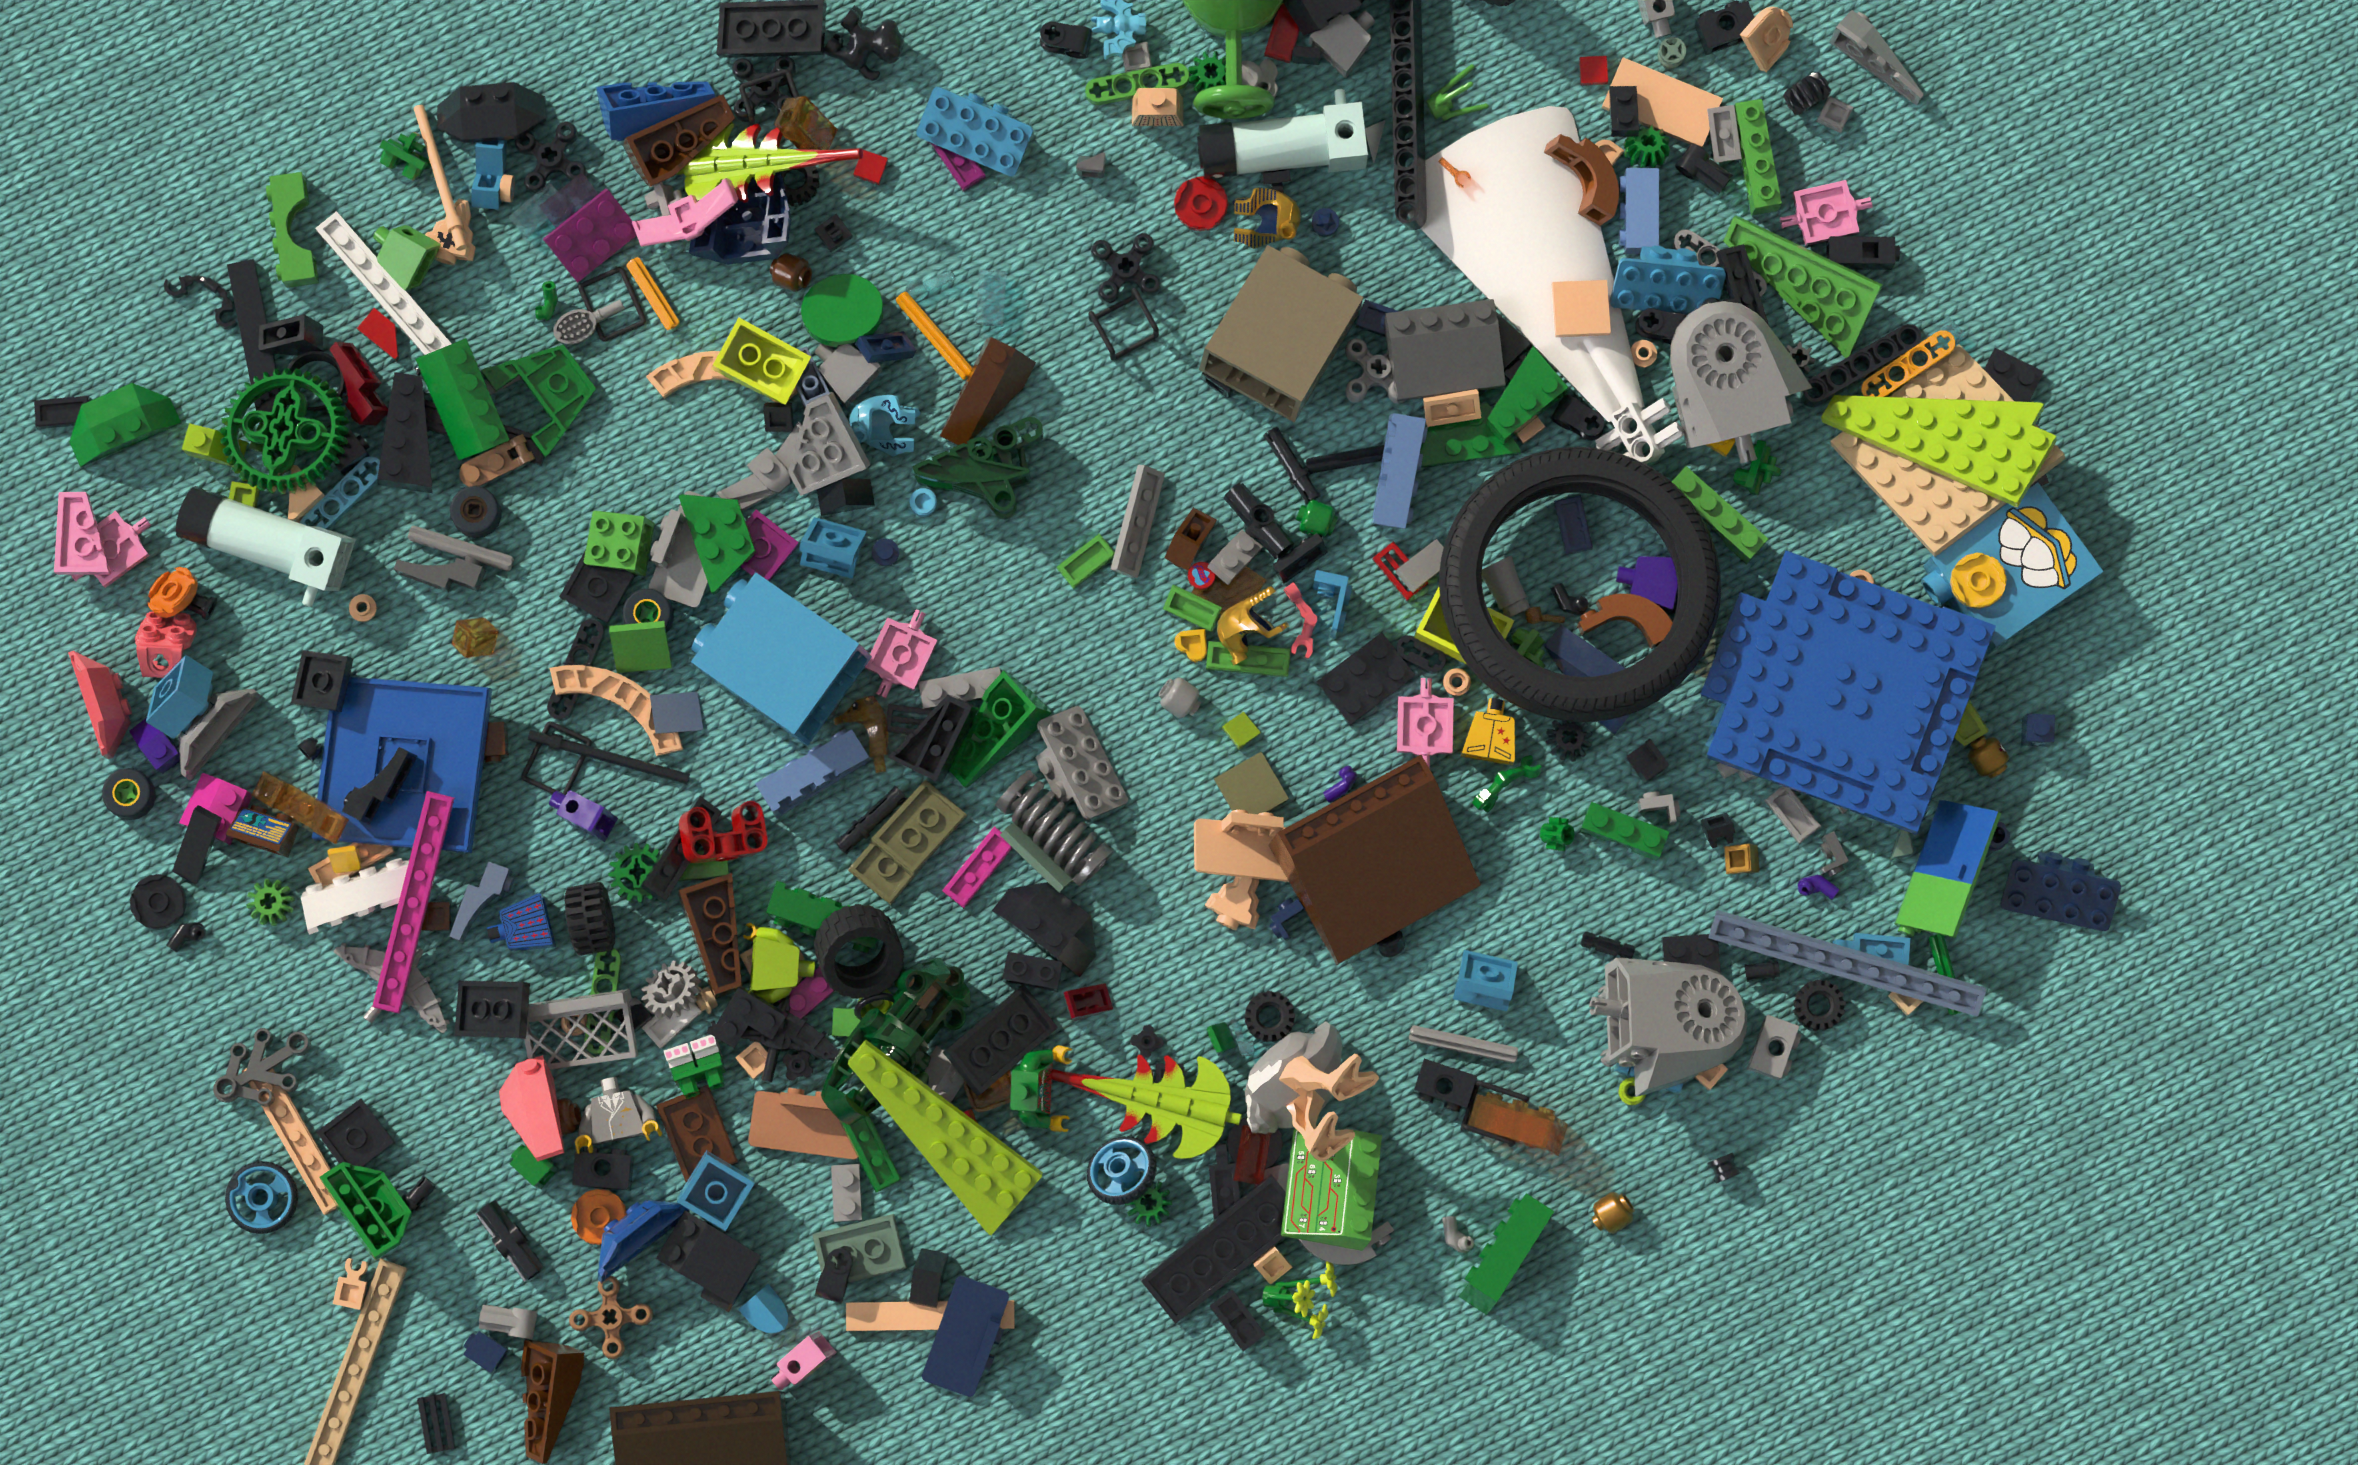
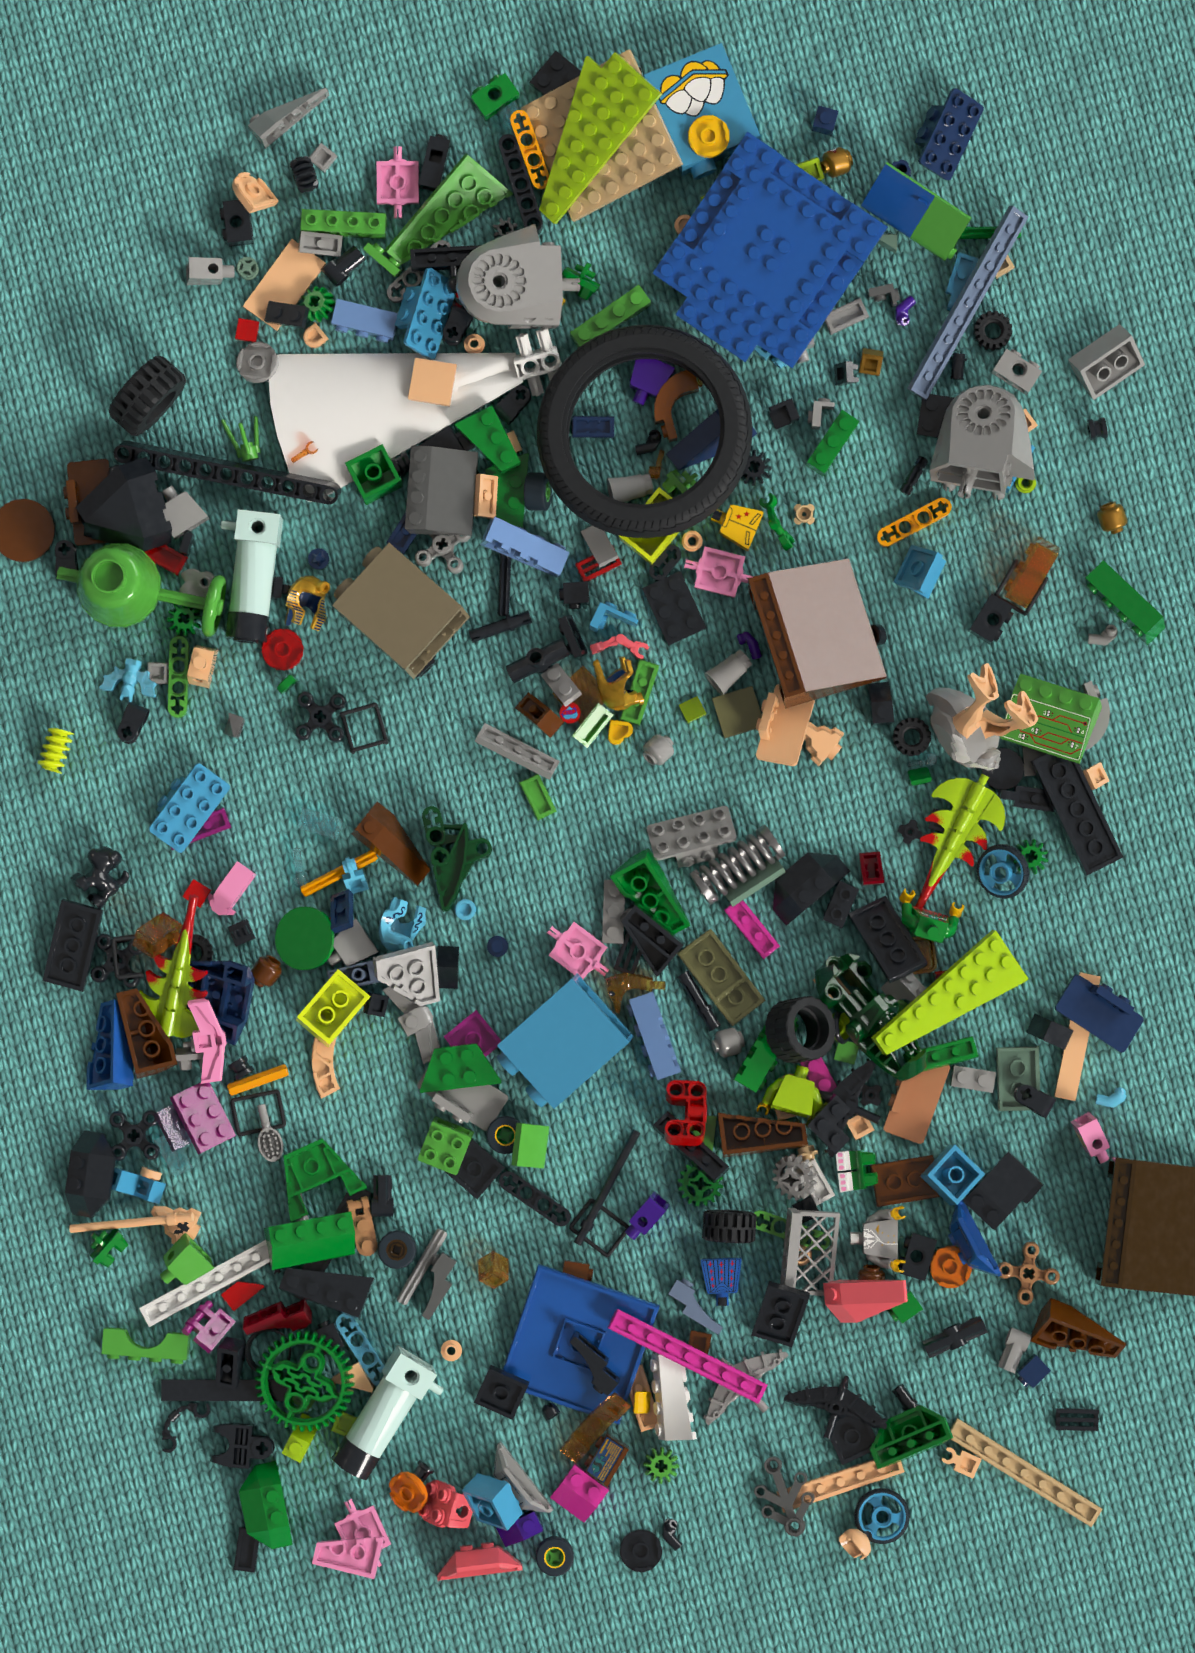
camera: 75 degrees left, 5 degrees up
(190, 375) = (249, 1445): none -> black piece
(197, 844) = (606, 1511): black tile -> none
(220, 1171) = (855, 1543): none -> light nougat hair
(327, 308) = (213, 1331): none -> plate
(393, 1110) = (838, 1404): none -> black bar
(531, 480) = (382, 1200): none -> black piece
(550, 301) = (244, 1158): green arm -> none
(619, 690) = (562, 1164): light nougat tile -> none
(663, 268) = (241, 1067): none -> black wheel
(676, 712) = (584, 1129): sand blue sticker -> none
(766, 1311) = (1048, 1157): dark azure brick -> none
(825, 868) = (728, 1042): none -> light grey head
(831, 547) = (485, 985): dark azure bracket -> none
(858, 1380) = (1113, 1100): none -> medium azure arm
(885, 207) = (231, 889): none -> bright pink piece
(928, 353) = (353, 880): none -> medium azure plate
(1158, 218) = (287, 683): none -> green tile
(1237, 1320) = (1132, 810): black brick -> none
(1251, 1156) = (1014, 773): clear red tile -> none
(1278, 1297) = (1121, 776): plant -> none
(1288, 910) = (836, 705): dark blue bracket -> none
(1299, 763) = (728, 671): none -> light grey plant
(1303, 967) = (880, 703): none -> black slope
(1317, 519) = (546, 617): green head -> none
(1353, 549) = (574, 594): none -> black brick
(1373, 136) = (261, 507): white sticker -> none
(1446, 264) = (374, 474): none -> green slope
(1463, 1044) = (963, 598): light grey axle -> none
(1468, 294) = (401, 464): none -> black wheel
(1471, 470) = (537, 492): none -> black wheel
(1528, 809) = (808, 509): none -> tan plate
(1550, 956) = (913, 521): none -> light orange beam
(1555, 91) = (257, 362): none -> light grey tile
(1557, 833) = (823, 493): green gear -> none
(1594, 172) = (330, 347): dark orange arch -> none
(1719, 224) = (389, 264): none -> bright green plate
(1814, 1161) = (1106, 361): none -> light grey slope
(1963, 291) = (489, 107): none -> green brick

